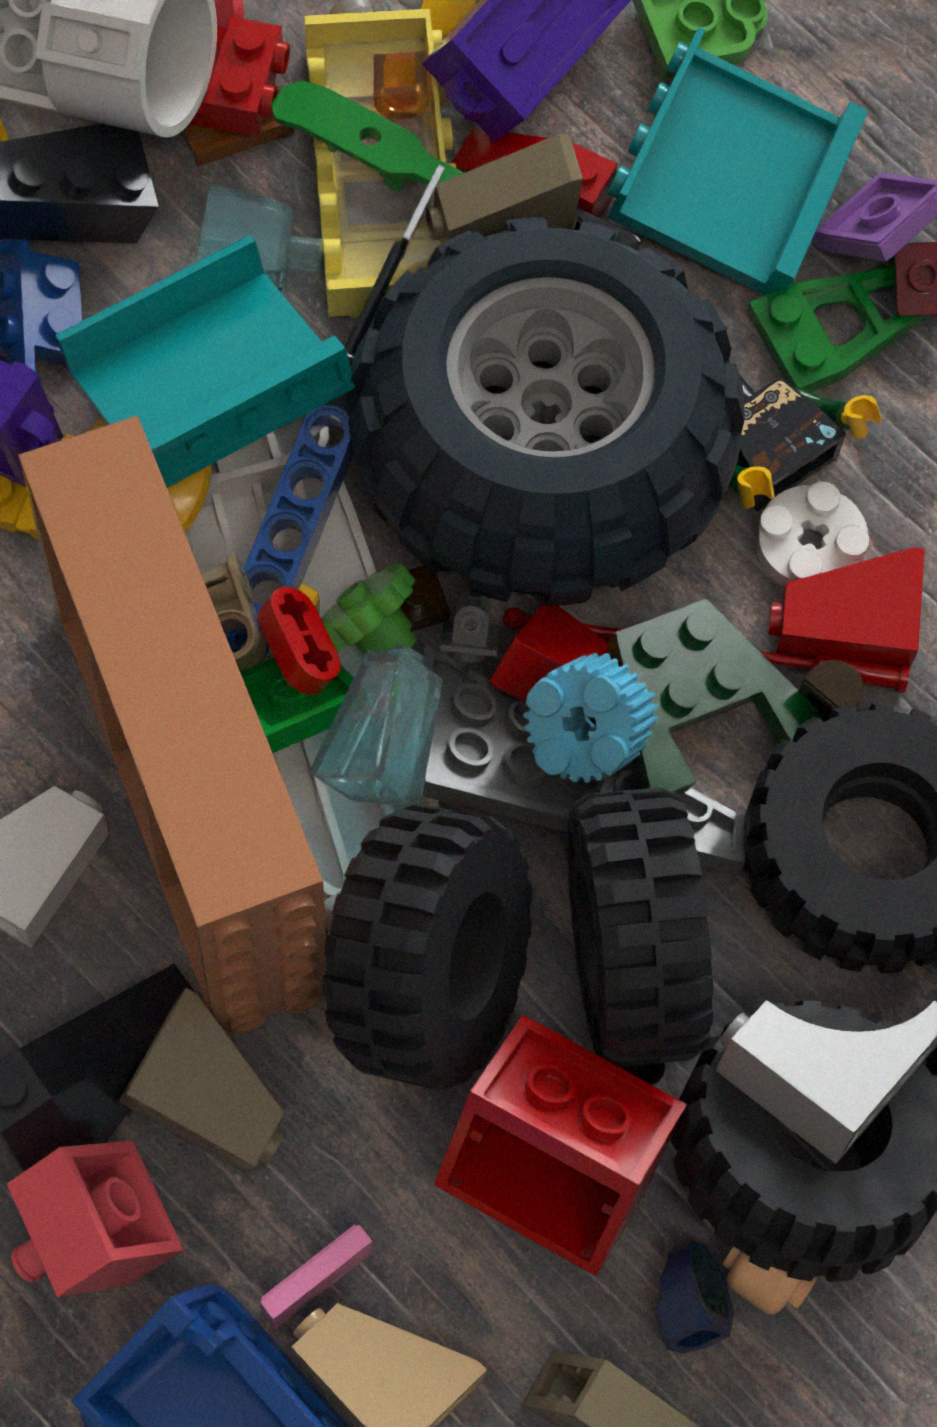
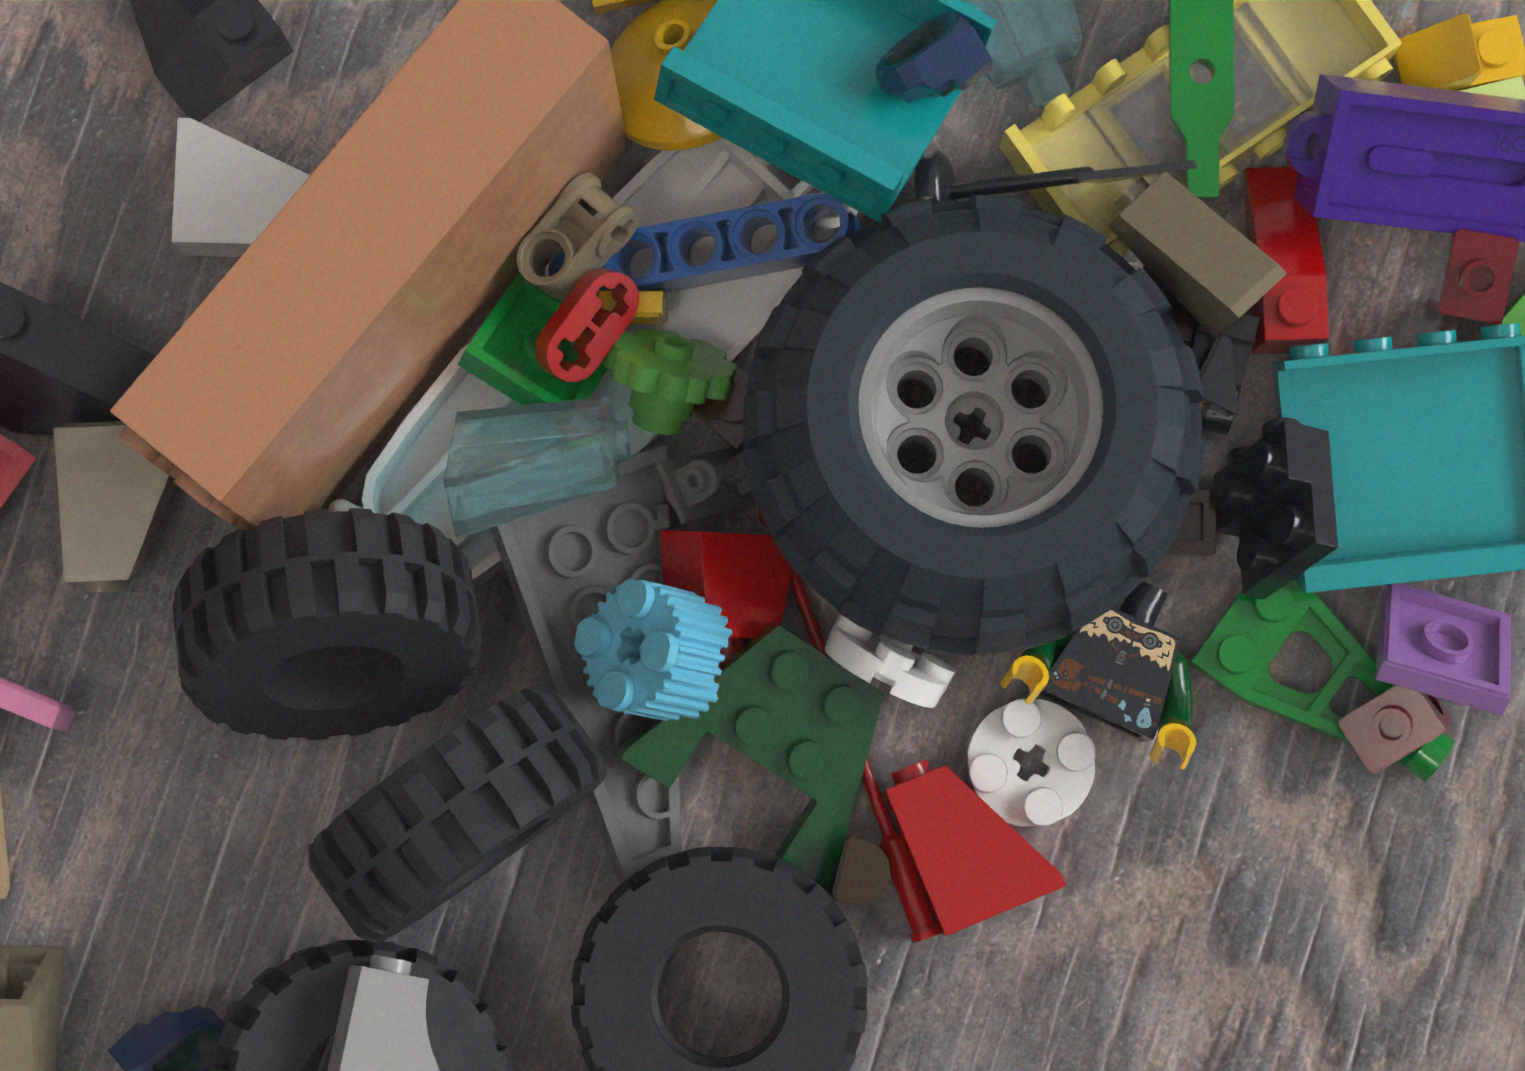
camera: 65 degrees right, 15 degrees up
(252, 286) = (934, 59): none -> dark blue rock
(400, 84) = (1292, 64): clear orange brick -> none
(558, 1144) = (219, 851): red container -> none
(629, 52) = (1477, 276): none -> dark red bracket
(682, 579) = (867, 655): none -> white plate
(727, 253) = (1278, 504): none -> black plate

